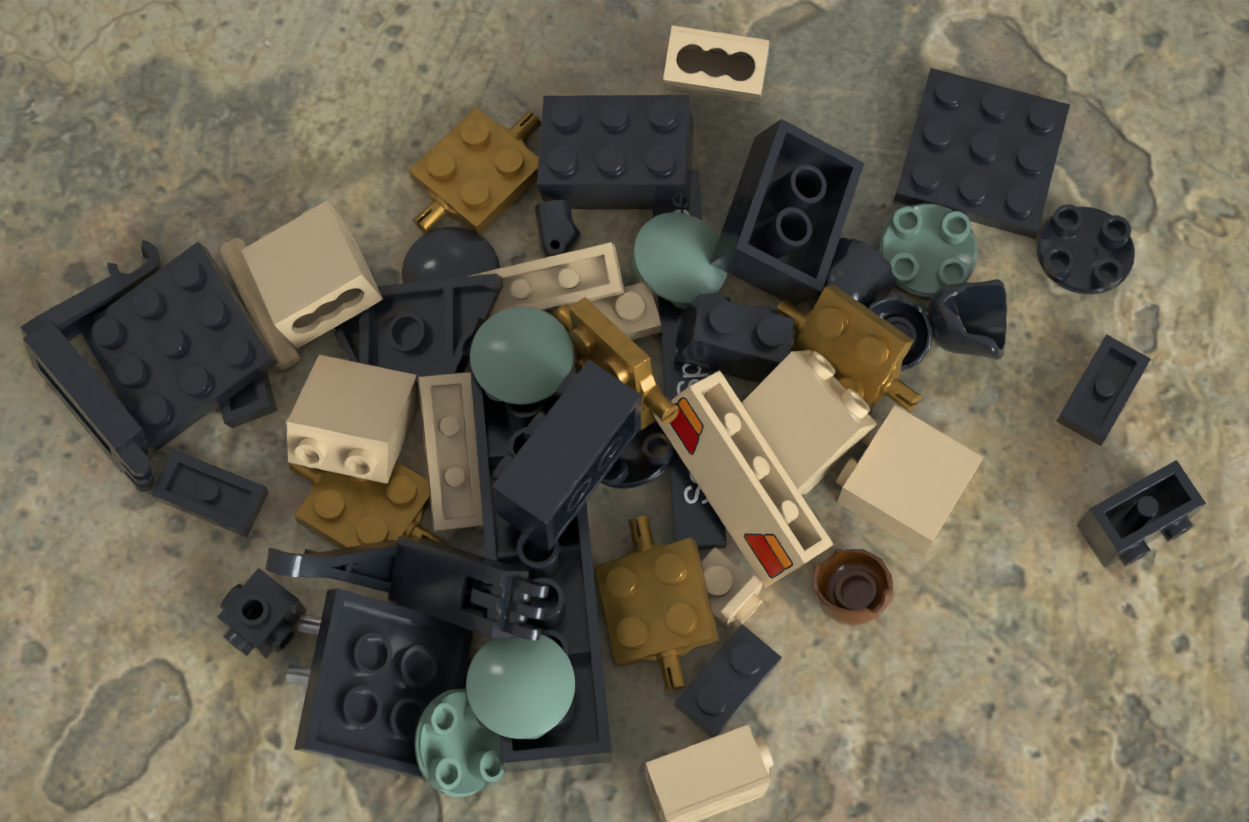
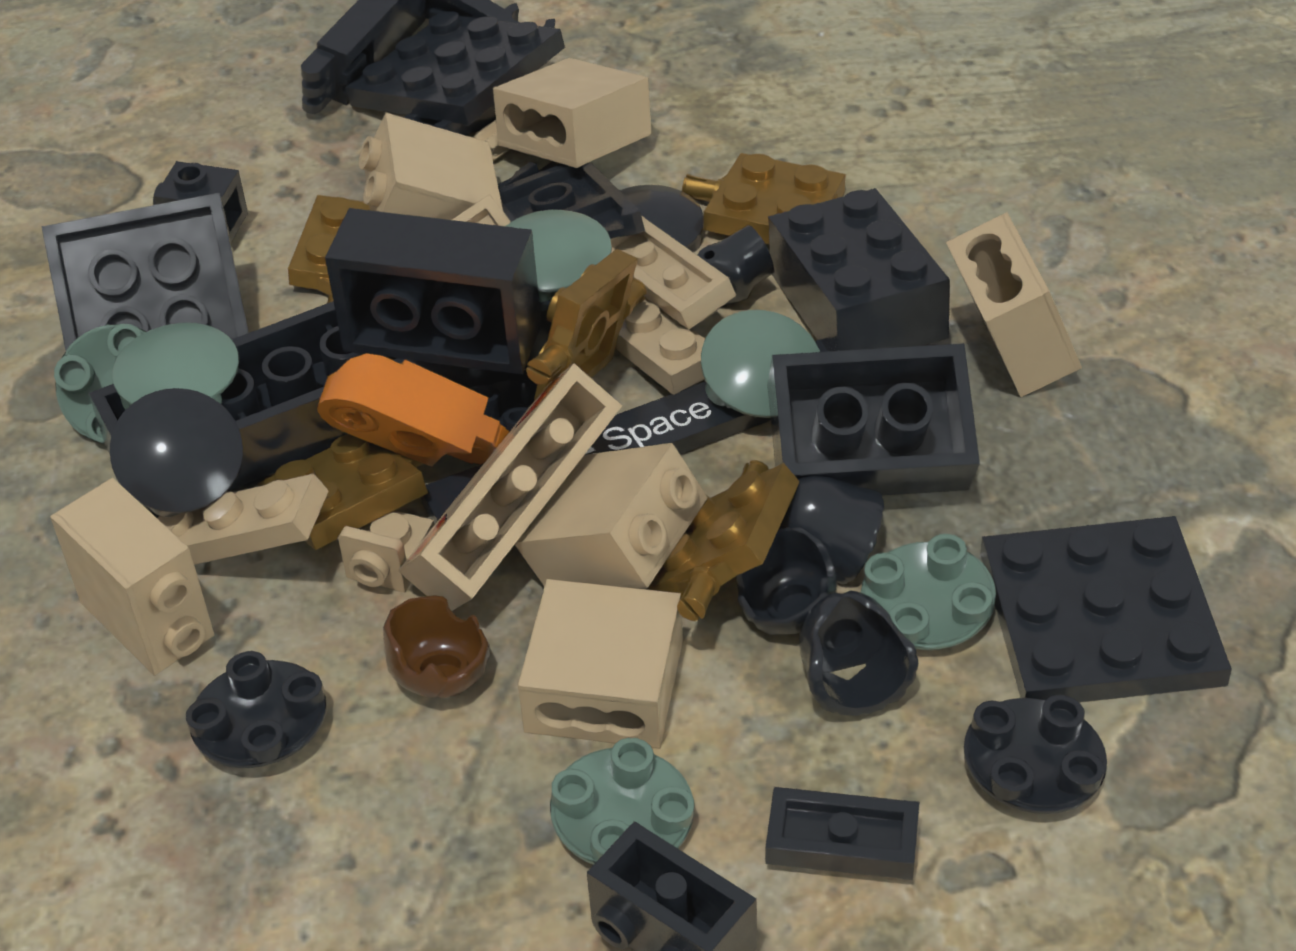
camera: 70 degrees right, 25 degrees down
(210, 493) = (317, 143): black plate -> none
(431, 581) = (285, 265): black hinge -> none
(615, 709) = (176, 451): none -> black dish
(643, 524) = (409, 411): none -> orange piece
(676, 689) = (251, 519): none -> tan plate
(728, 681) = (279, 592): black plate -> none
(732, 337) = (687, 408): black brick -> none
(845, 729) = (257, 712): none -> black dish
(1027, 515) = (614, 788): none -> sand green dish

